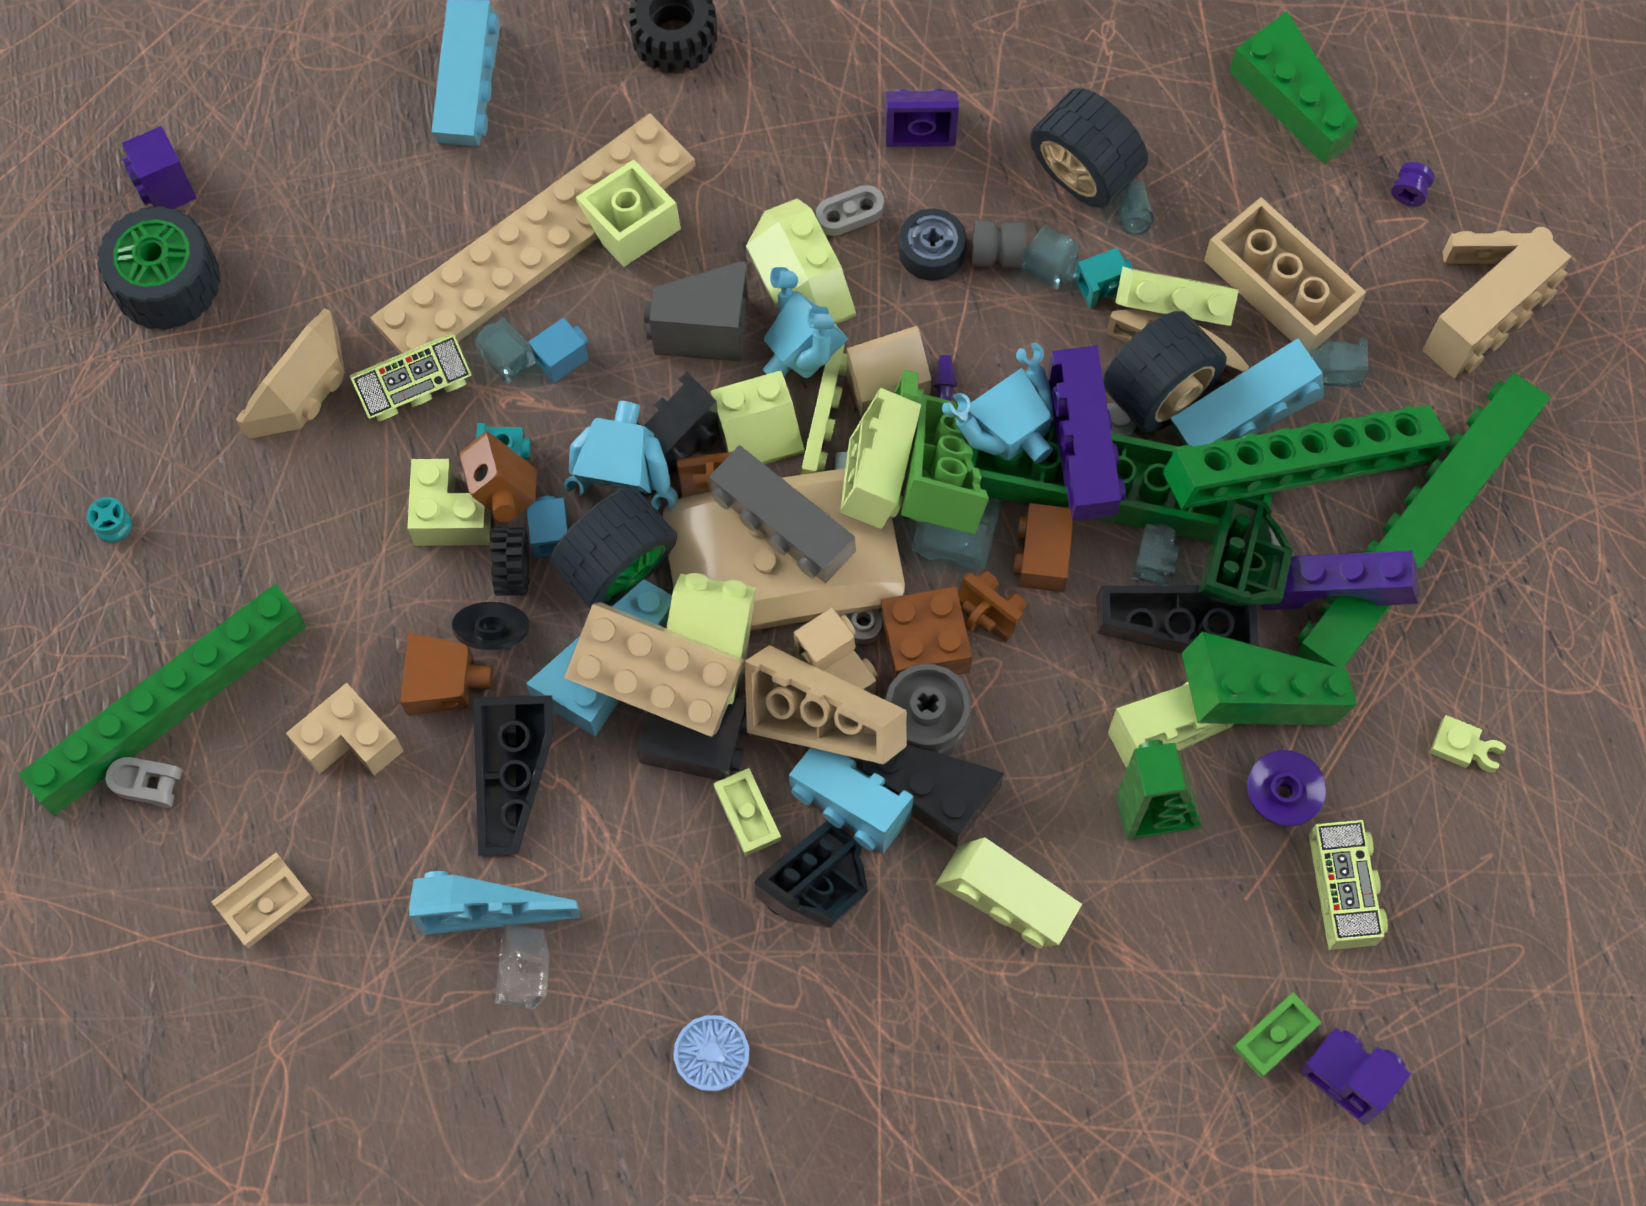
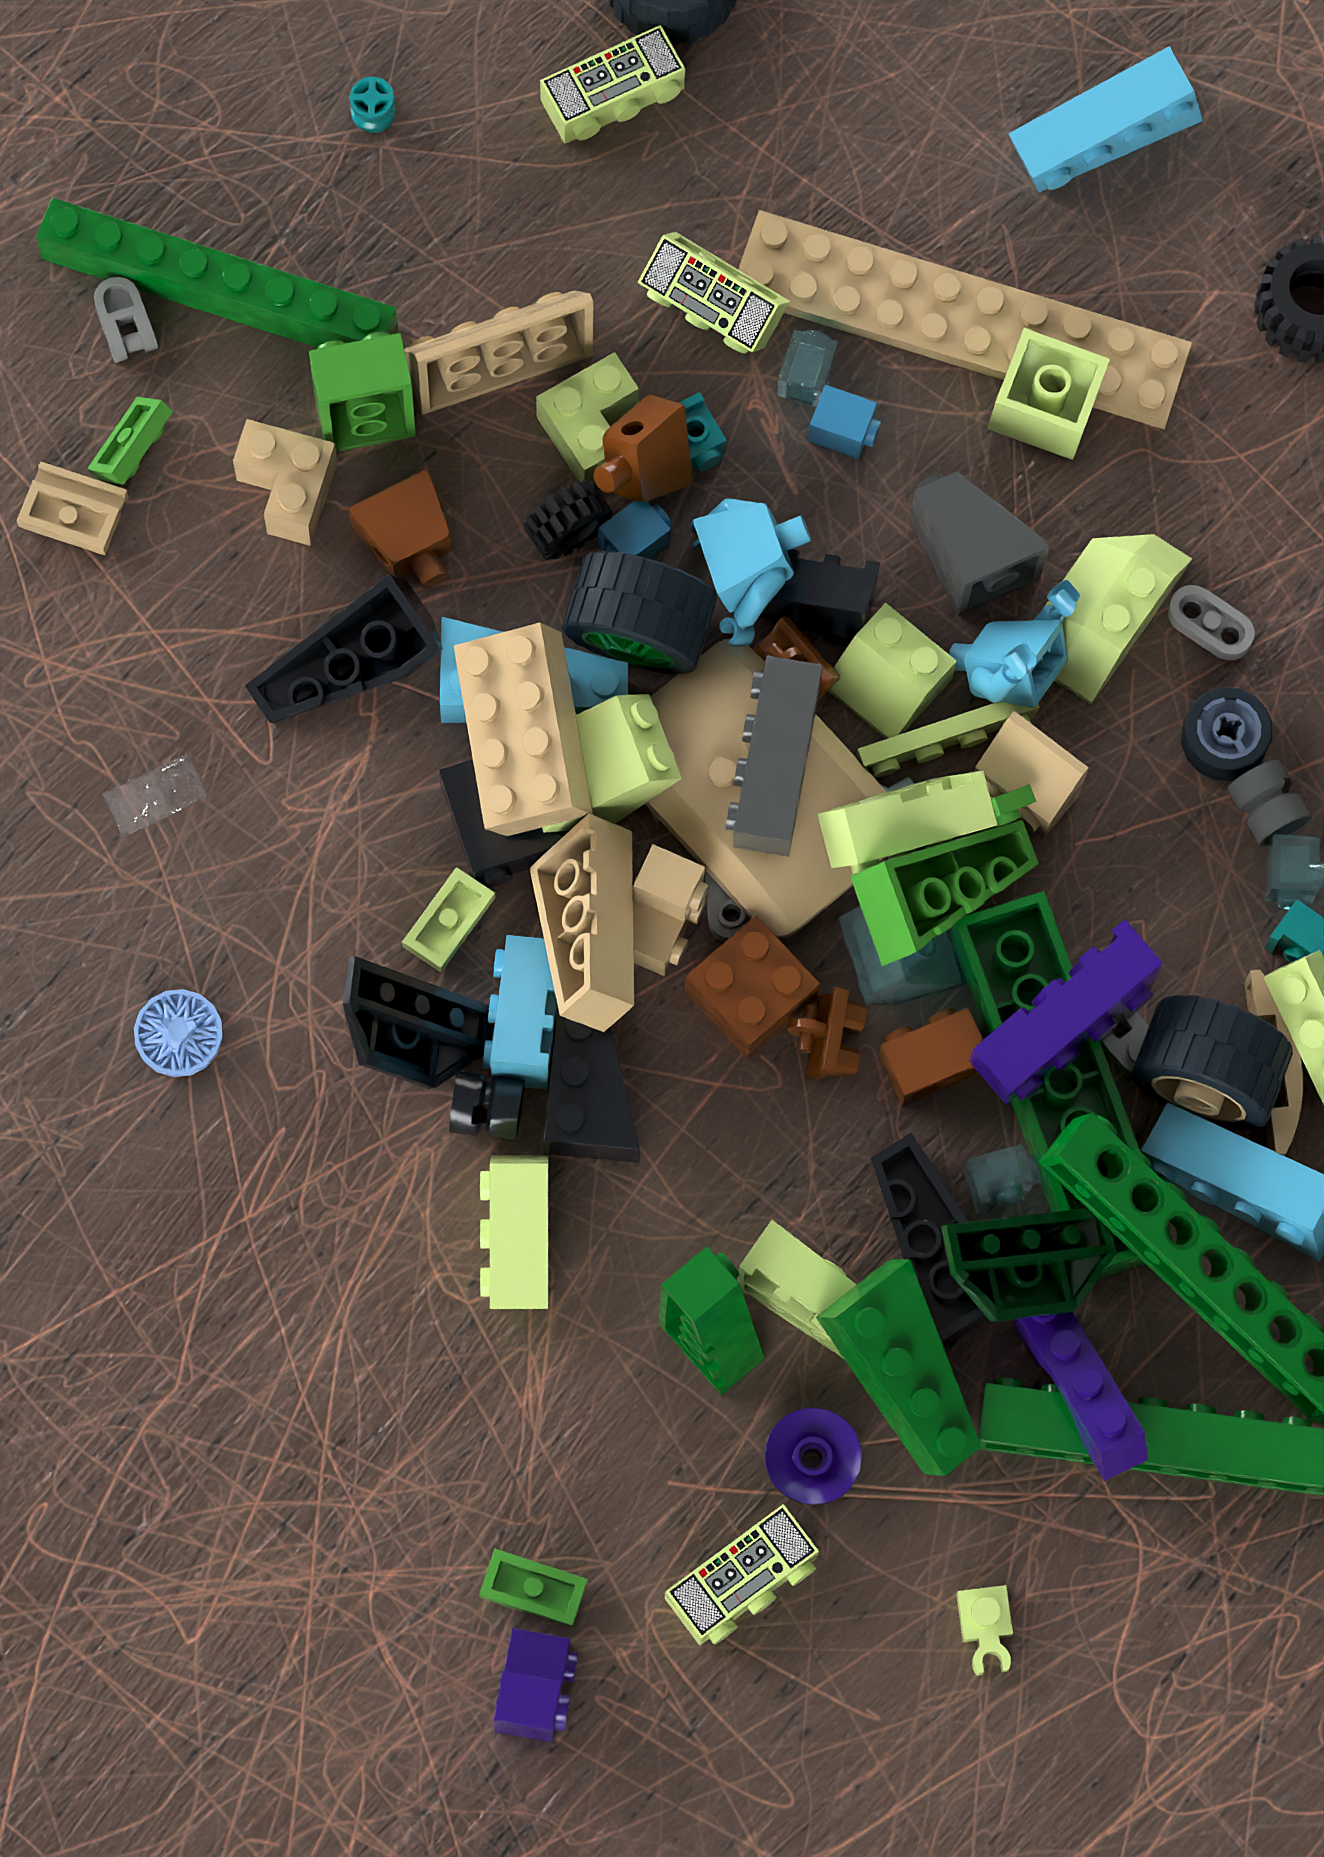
camera: 55 degrees right, 5 degrees up
(213, 356) = (613, 85): none -> brick
(239, 828) = (130, 440): none -> bright green plate
(297, 382) = (640, 186): tan wedge -> none
(323, 637) = (363, 391): none -> bright green brick
(352, 534) = (501, 350): none -> tan slope
(461, 903) = (177, 691): medium azure wedge -> none
(490, 625) = (489, 544): black dish -> none
(905, 861) = (503, 1101): none -> black wheel
(934, 706) = (692, 1027): dark grey wheel -> none
(944, 377) = (1071, 840): dark purple bar -> none
(1011, 414) = (1042, 923): medium azure torso -> none

